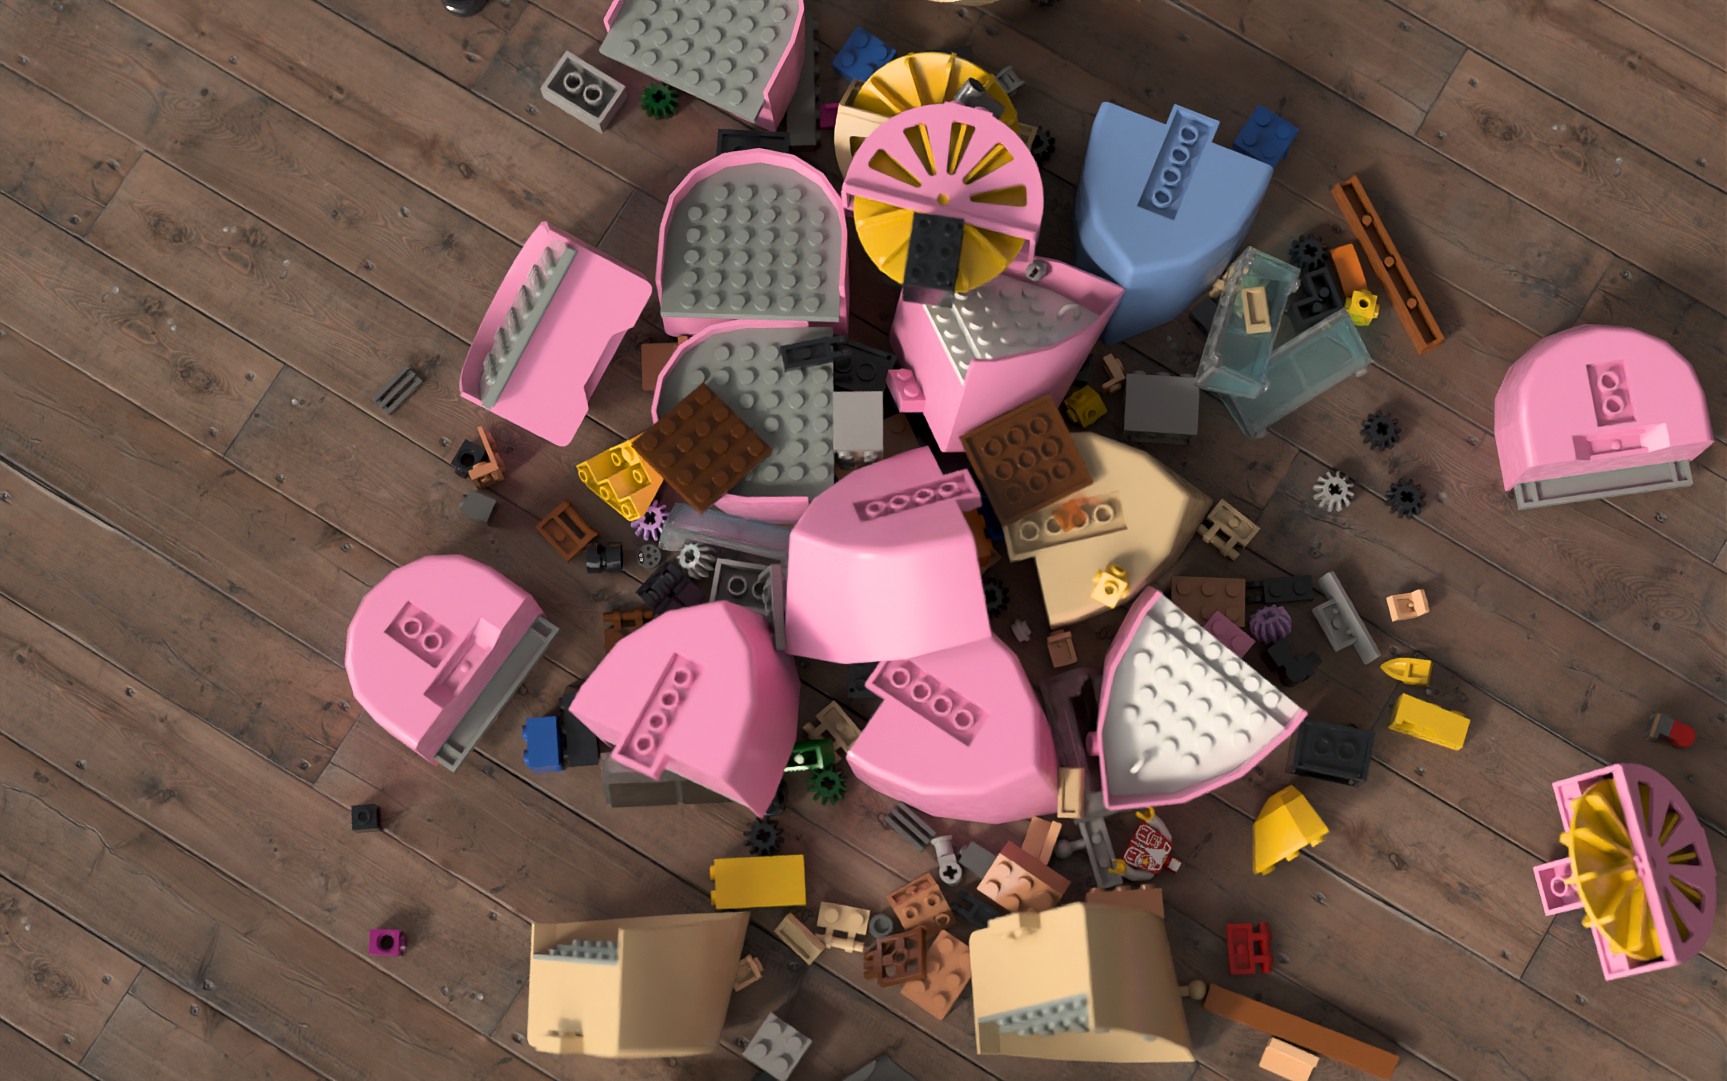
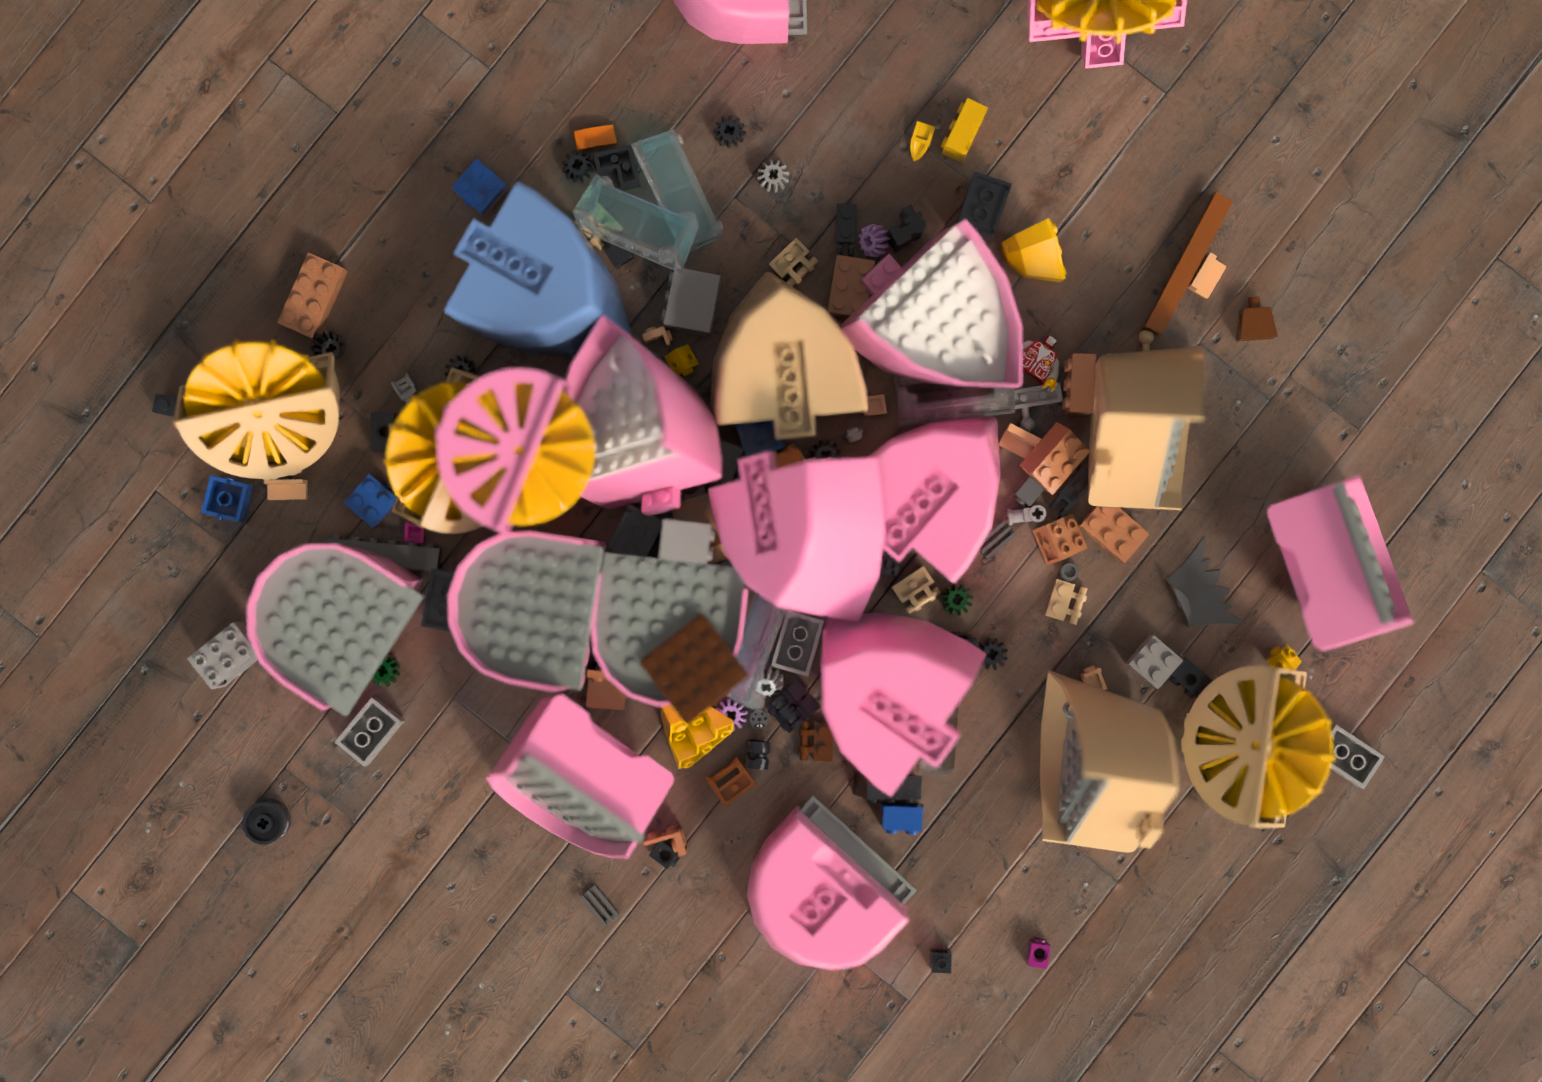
camera: 90 degrees left, 10 degrees up
(478, 507) = (704, 850): dark grey brick -> none
(758, 882) = (1026, 661): yellow panel -> none
(774, 603) = (818, 624): light grey wing -> none
(799, 938) = (1072, 635): tan tile -> none
(811, 755) = (935, 609): green brick -> none
(813, 352) = (625, 571): black hinge -> none
(879, 959) = (1097, 575): reddish brown piece -> none
(933, 260) = (573, 464): black container -> none
(974, 95) = (431, 414): dark grey piece -> none
(1026, 460) = (739, 412): reddish brown plate -> none
(1041, 273) = (581, 385): light grey hinge -> none
(1069, 516) = (787, 384): clear orange tile -> none
(1071, 792) = (991, 412): tan tile -> none
(1092, 743) = (952, 390): bright pink tile -> none
(1110, 584) = (847, 358): yellow brick -> none
(1241, 951) = (1119, 299): red plate -> none
(1256, 310) = (623, 214): tan tile -> none
(1342, 621) = (876, 185): light grey bracket -> none
(1359, 315) = (631, 137): yellow brick -> none
(1388, 265) = (594, 105): dark orange tile -> none
(1408, 605) = (870, 131): light nougat bracket -> none
(1409, 507) = (785, 113): black gear -> none

